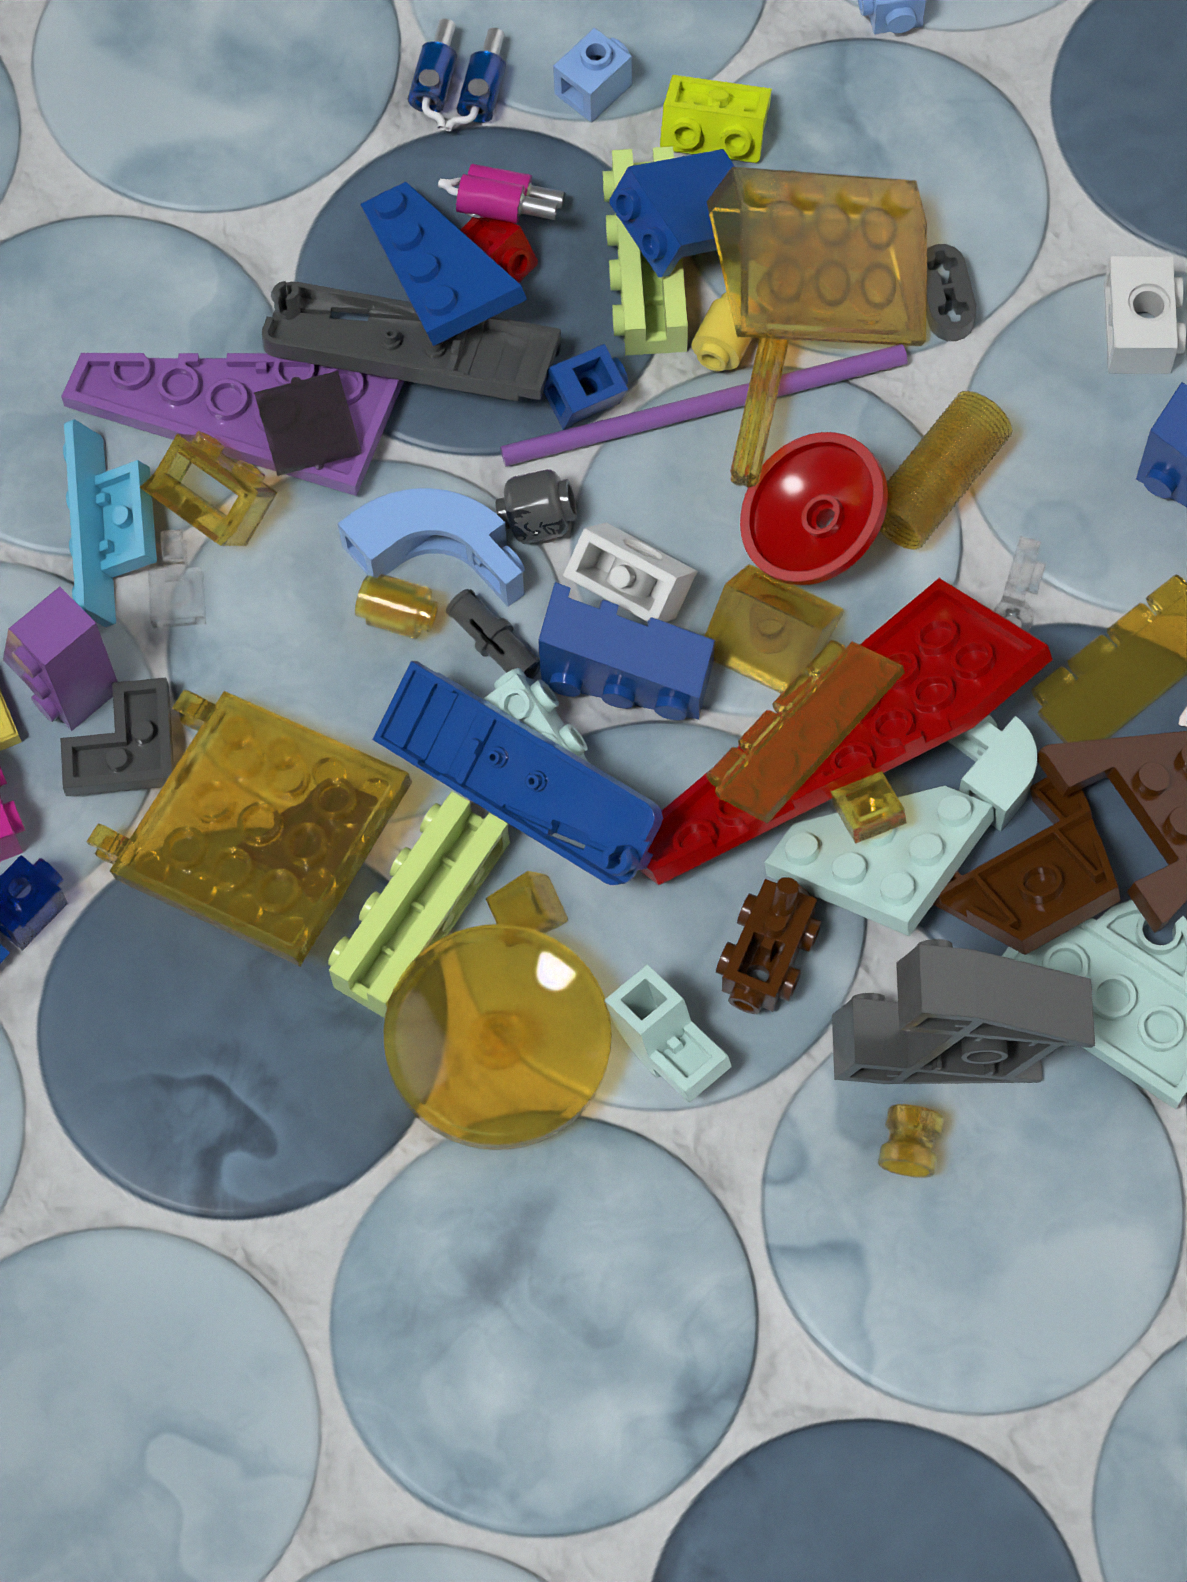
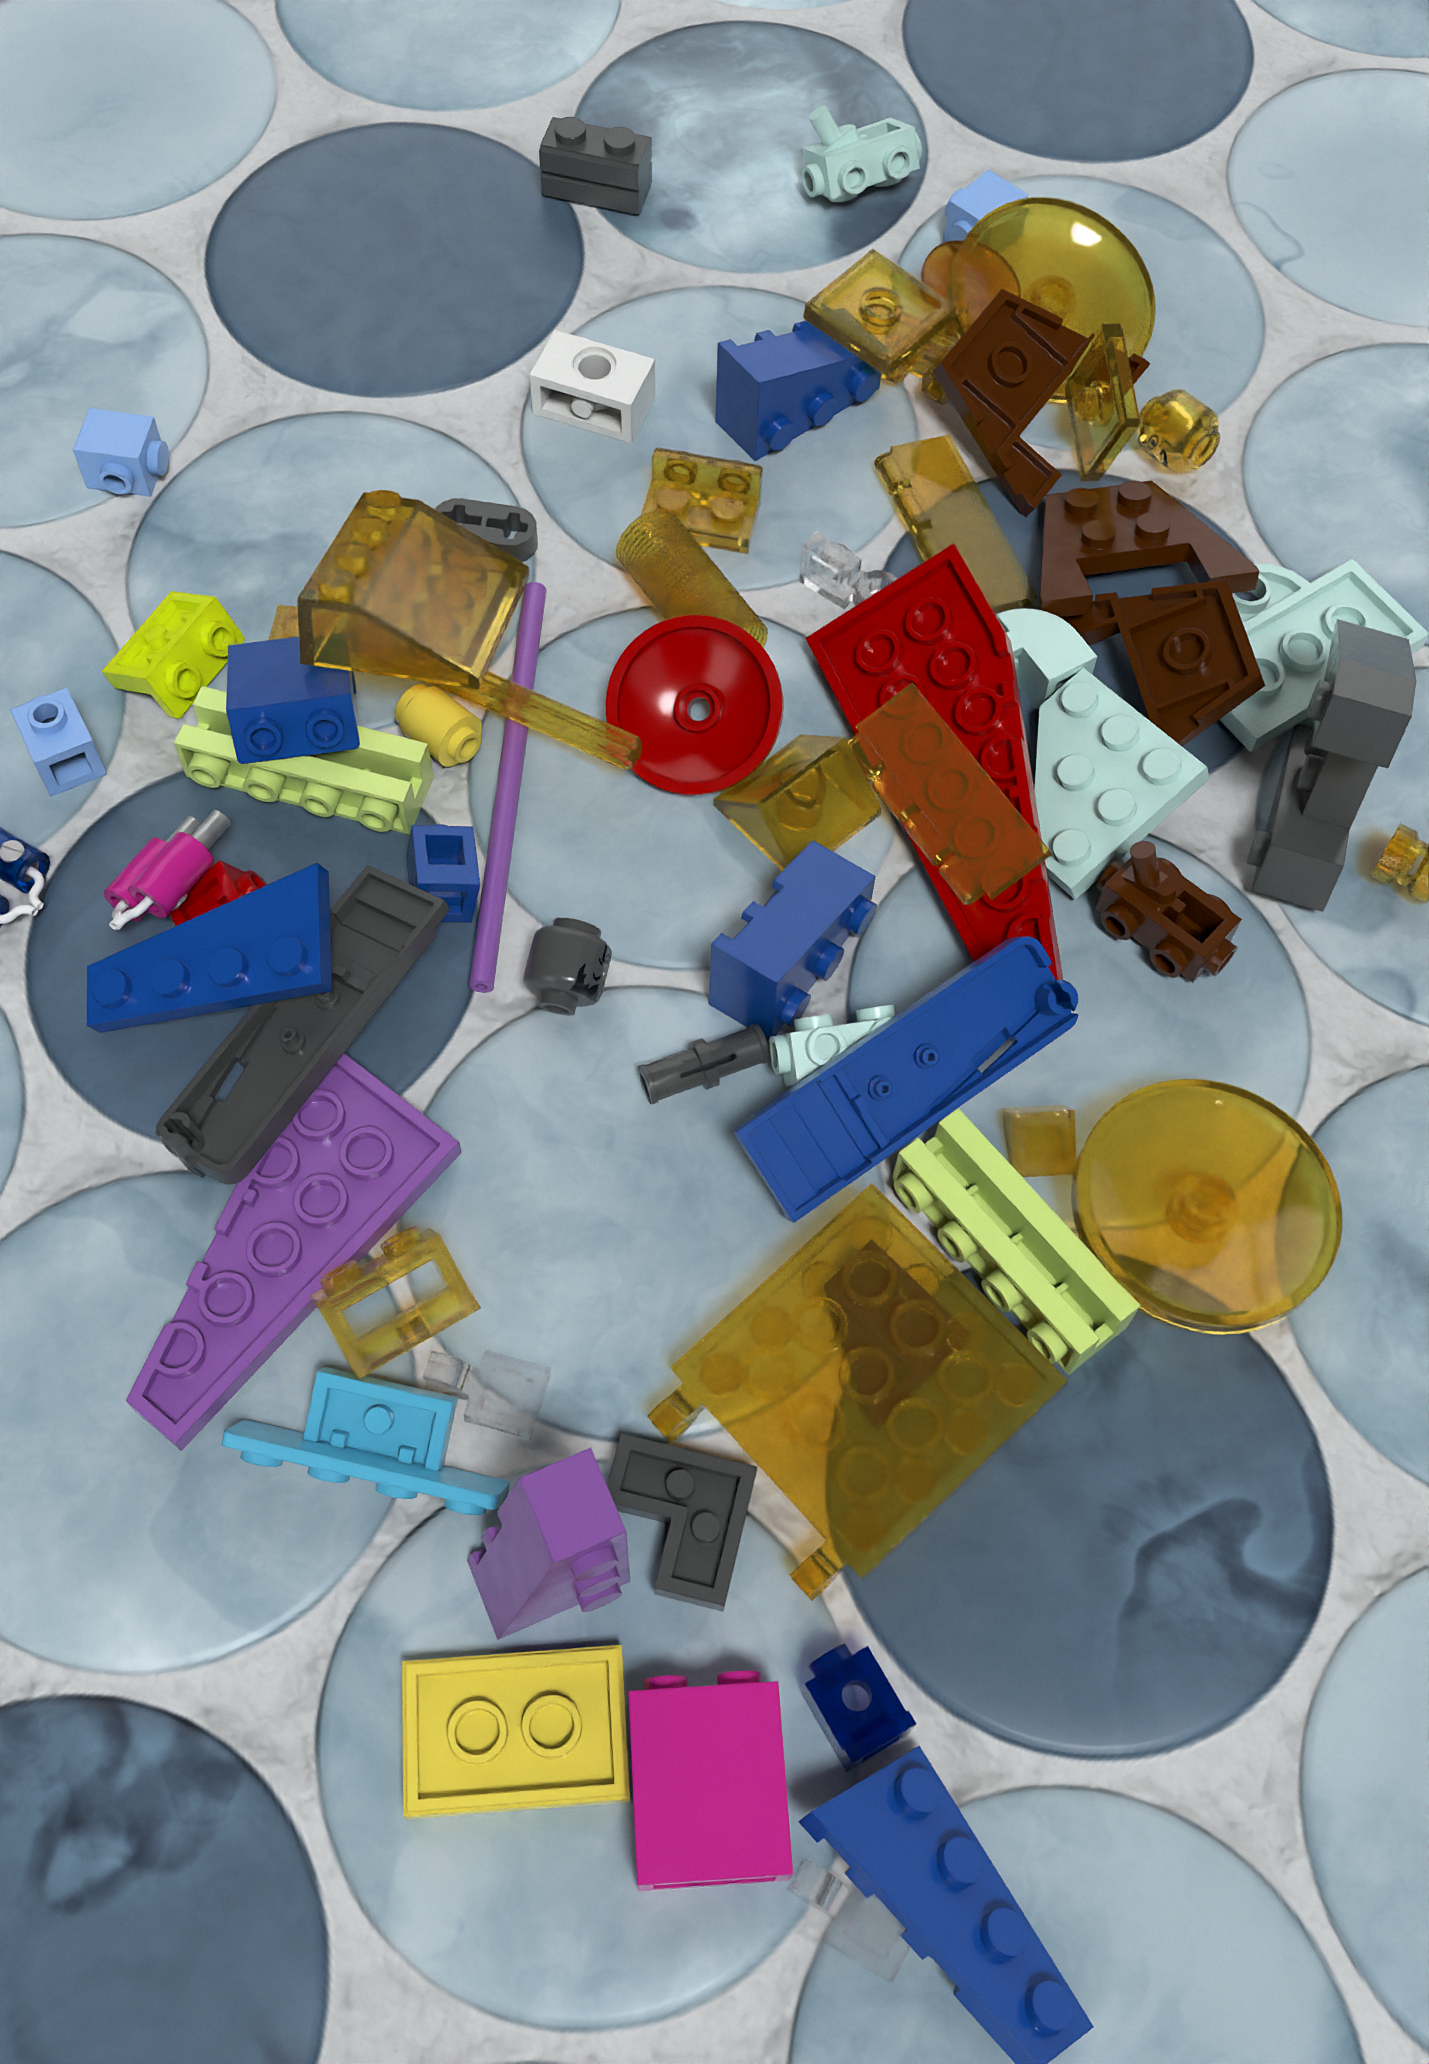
camera: 75 degrees left, 5 degrees down
(307, 423) = (354, 1165): clear smoke piece -> none
(396, 605) = (628, 1148): clear yellow brick -> none
(434, 522) = (545, 1068): light blue arch -> none
(629, 573) = (696, 896): white brick -> none
(662, 1035) = (1245, 1041): light aqua brick -> none
(868, 807) = (1061, 762): clear yellow plate -> none
(1055, 449) = (709, 495): none -> clear yellow bracket

